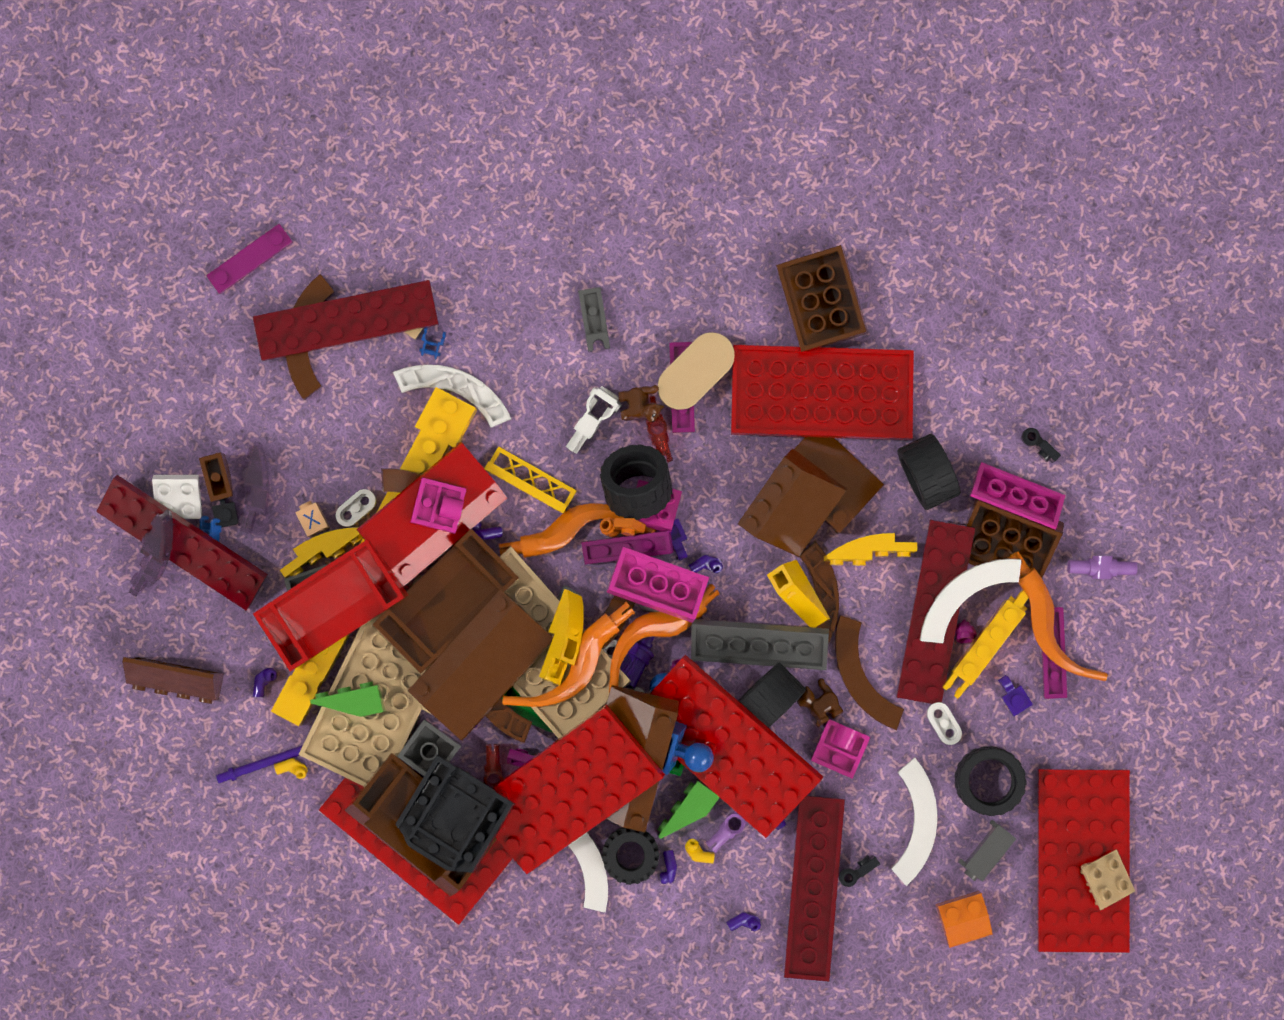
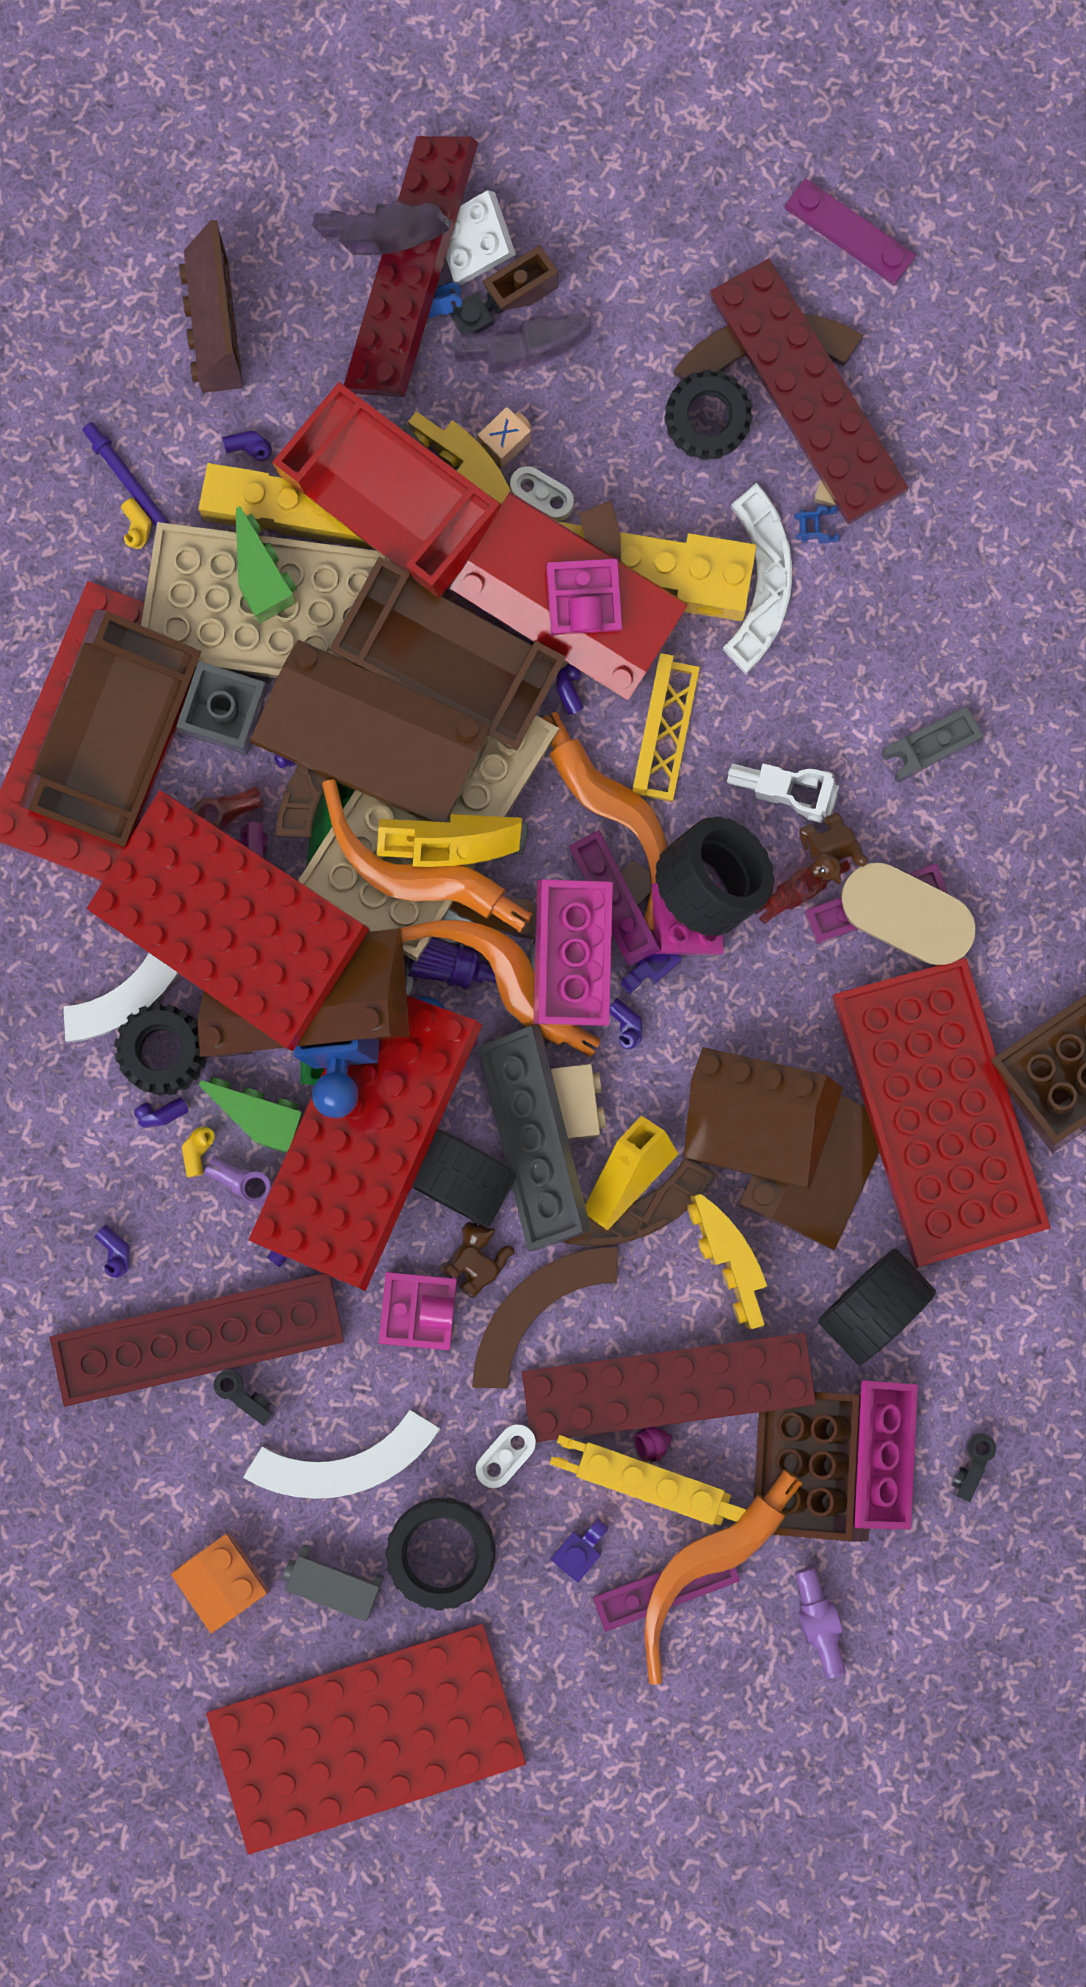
camera: 70 degrees right, 5 degrees down
(361, 385) = (725, 389): none -> black tyre
(453, 817) = (134, 766): black wedge -> none
(627, 526) = (640, 871): orange plate -> none
(744, 610) = (577, 1100): none -> tan brick
(960, 589) = (718, 1414): white tile -> none
(1107, 879) = (347, 1783): tan hinge -> none

